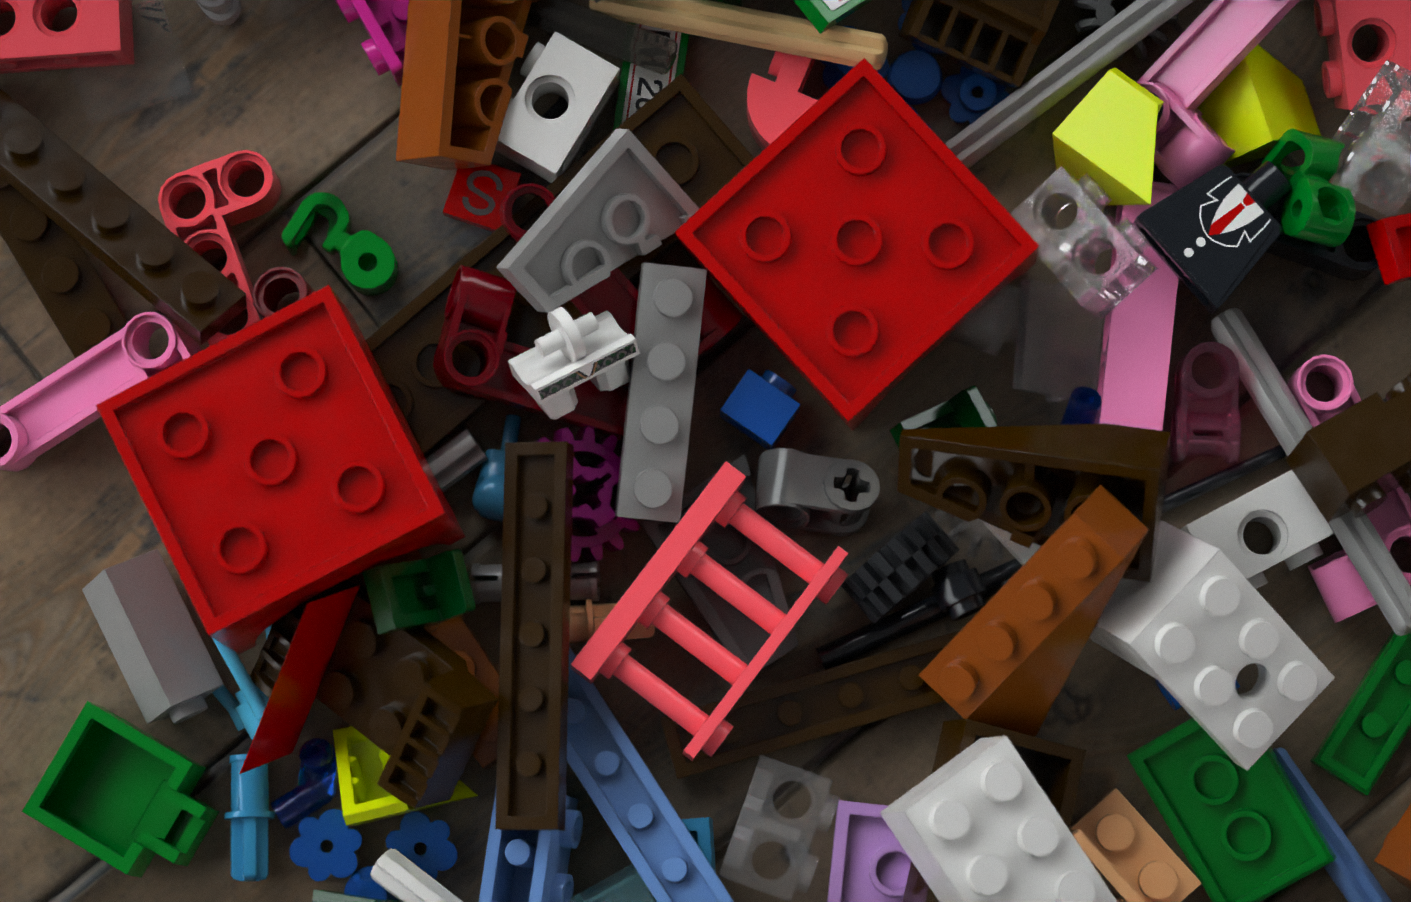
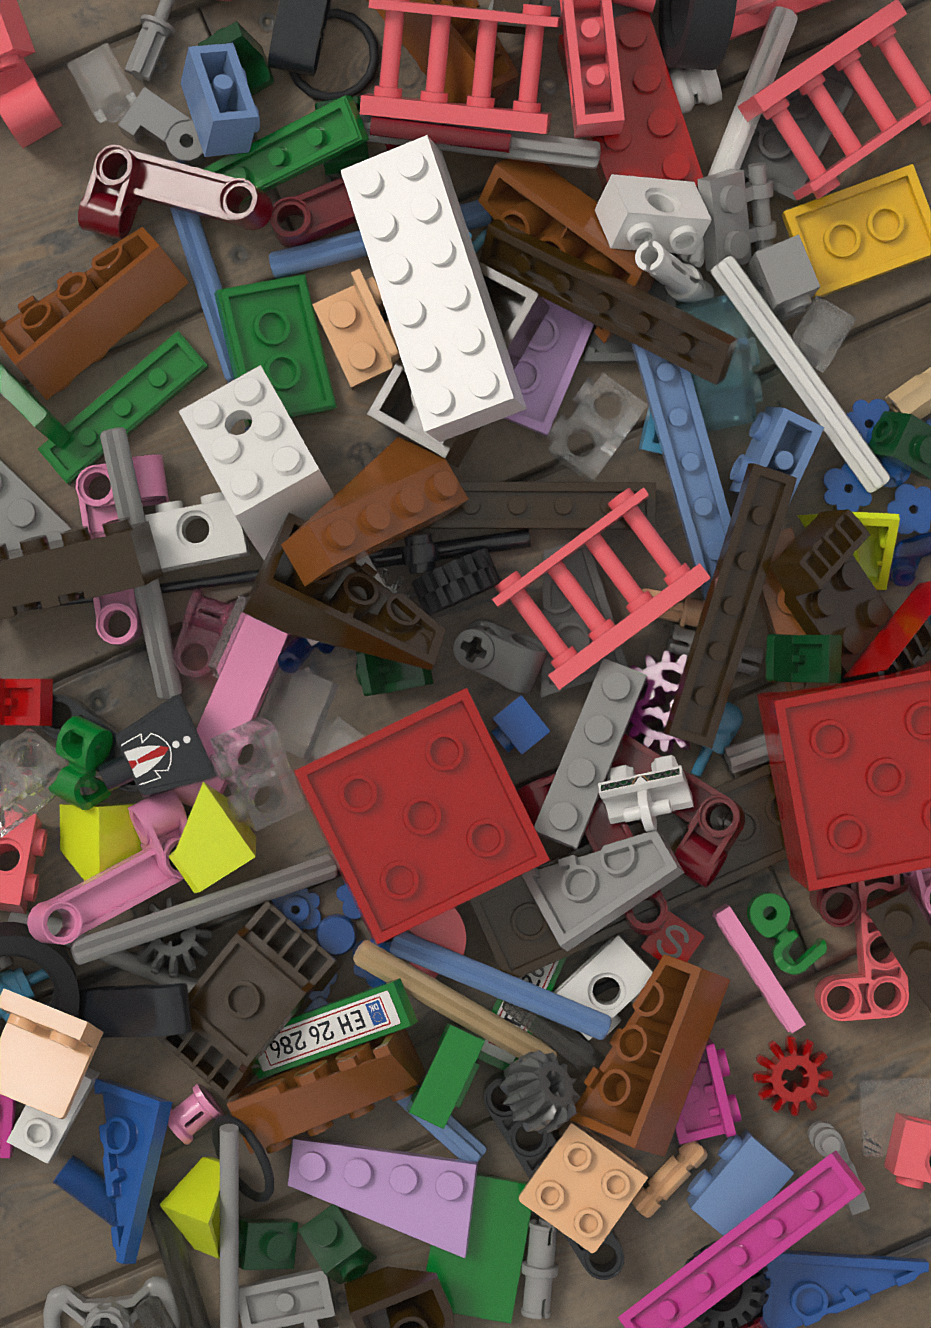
camera: 165 degrees left, 5 degrees up
(268, 52) = (795, 1091): none -> red gear
(363, 189) = (757, 968): none -> bright pink tile
(685, 65) = (501, 985): none -> medium blue axle
(1176, 402) = (227, 637): none -> clear piece

